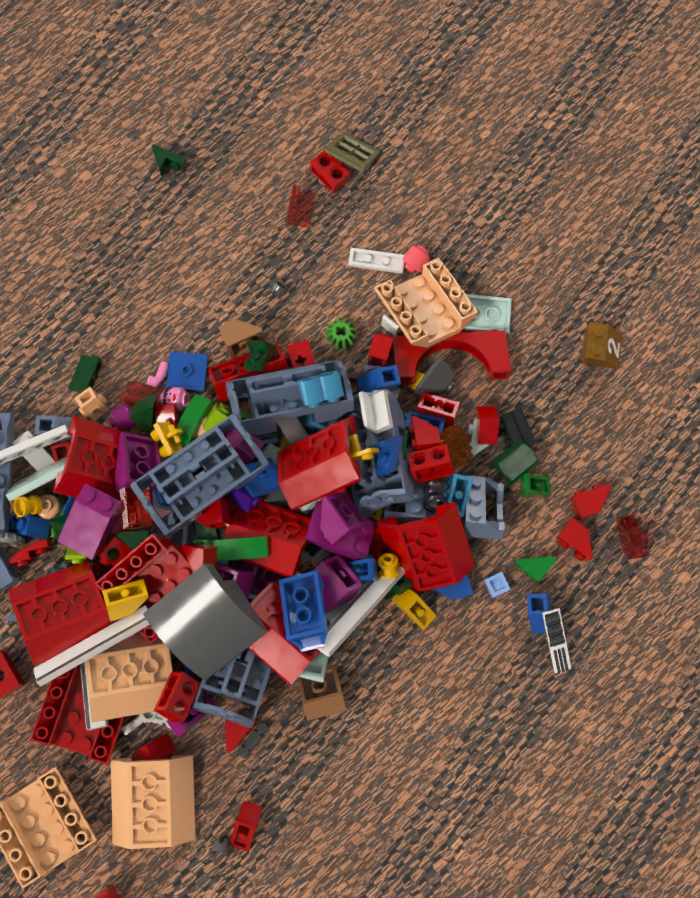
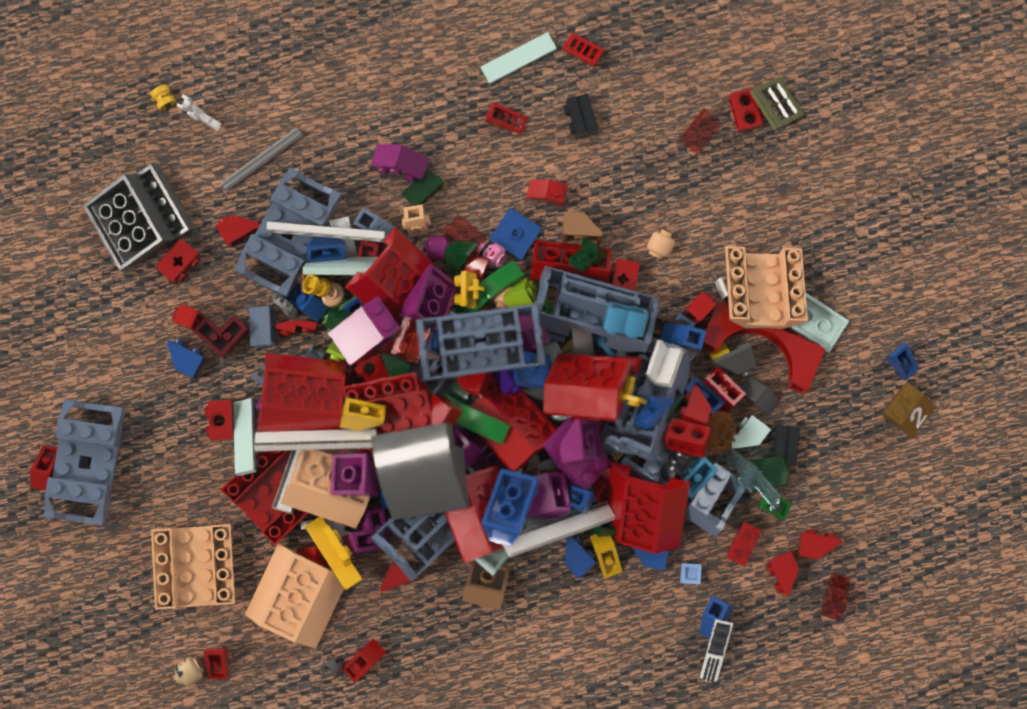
camera: 30 degrees right, 5 degrees up
(21, 469) = (325, 249): none -> blue slope
(22, 664) = (244, 437): none -> light aqua tile
(51, 358) = (399, 161): none -> magenta brick
(113, 224) = (518, 58): none -> light aqua tile
(127, 285) = (496, 122): none -> red slope
(146, 659) = (353, 475): none -> magenta slope
(161, 374) = (490, 225): bright pink arm -> none
(165, 158) = (597, 18): dark green slope -> none
(166, 741) = (335, 554): none -> yellow bracket
(172, 196) = (579, 55): none -> red slope
(175, 695) = (363, 521): red brick -> none
(192, 244) = (581, 116): none -> black brick
(196, 321) = (547, 191): none -> red slope
(253, 739) = (406, 591): dark grey axle -> none
(279, 288) = (639, 199): dark grey hinge -> none
(317, 315) = (661, 244): none -> light nougat head
(349, 333) = (681, 274): bright green gear -> none
(376, 260) = (743, 219): white tile -> none
(389, 566) = (603, 506): yellow brick -> none
(390, 625) = (576, 557): none -> blue slope
(416, 258) = (780, 237): coral head -> none
(470, 398) = (759, 395): none -> dark grey slope
(487, 425) = (759, 427): red slope -> none
(504, 471) = (751, 477): none -> clear light blue plate
(527, 534) = (743, 544): none -> red brick
(535, 567) = (734, 577): green slope -> none
(574, 308) = (903, 361): none -> blue slope

